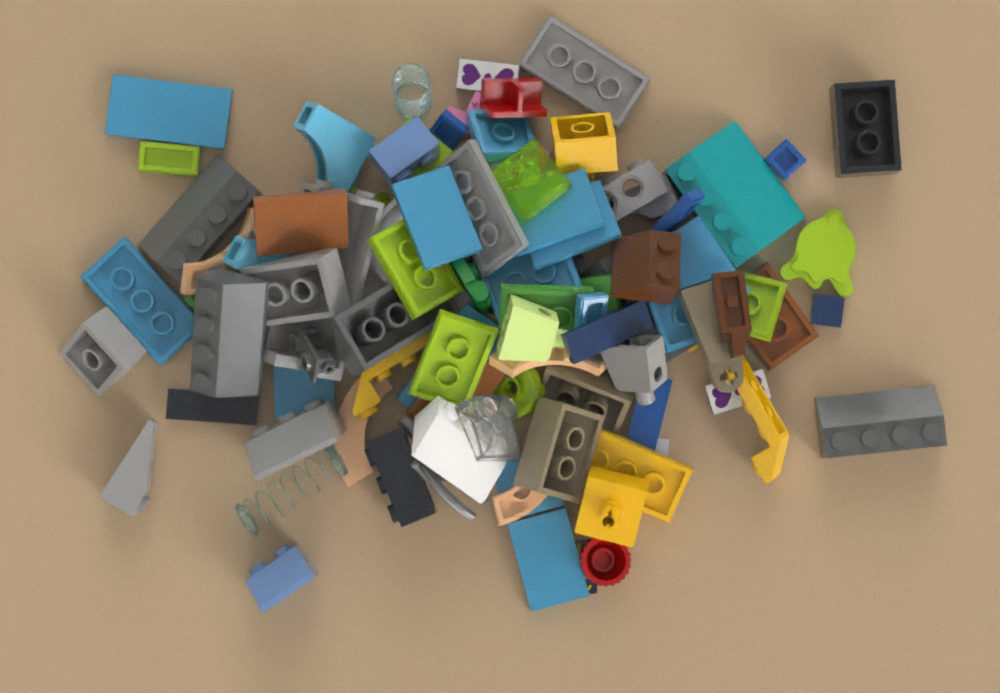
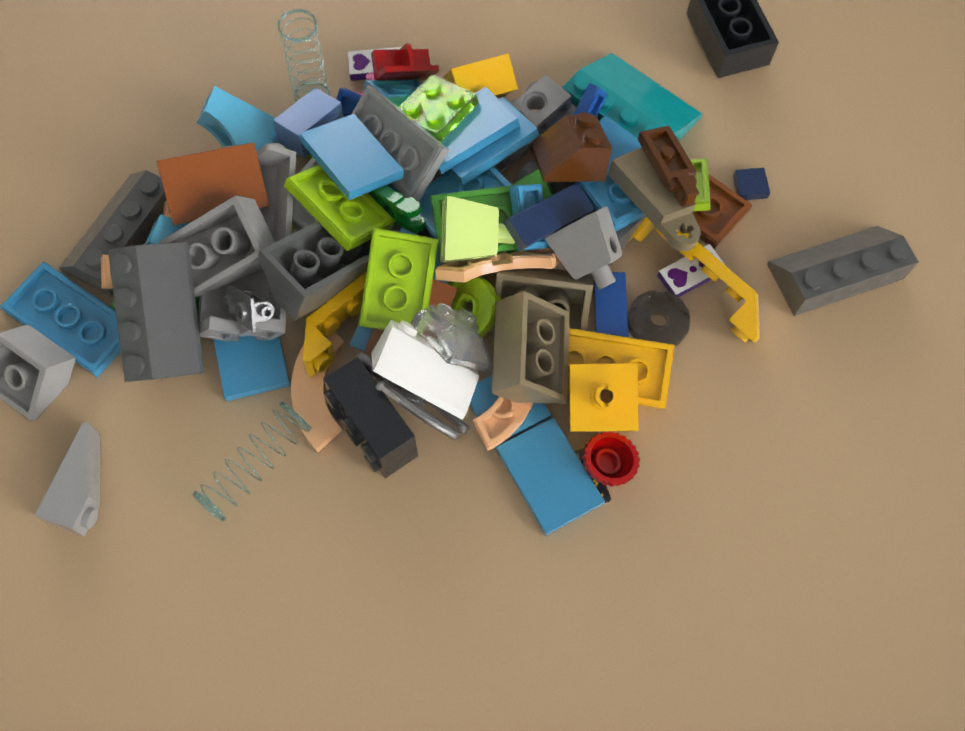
camera: 10 degrees left, 20 degrees down
(169, 112) = (77, 149): dark azure tile -> none
(169, 158) = (82, 187): lime tile -> none
(201, 407) = (156, 403): black tile -> none
(281, 577) = (258, 560): medium blue slope -> none
(294, 437) = (245, 405): light grey slope -> none
(583, 71) = (462, 40): light grey tile -> none
(707, 428) = (663, 304): none -> clear smoke tile
(785, 160) = (667, 73): blue tile -> none
(823, 253) = (731, 137): lime tile -> none

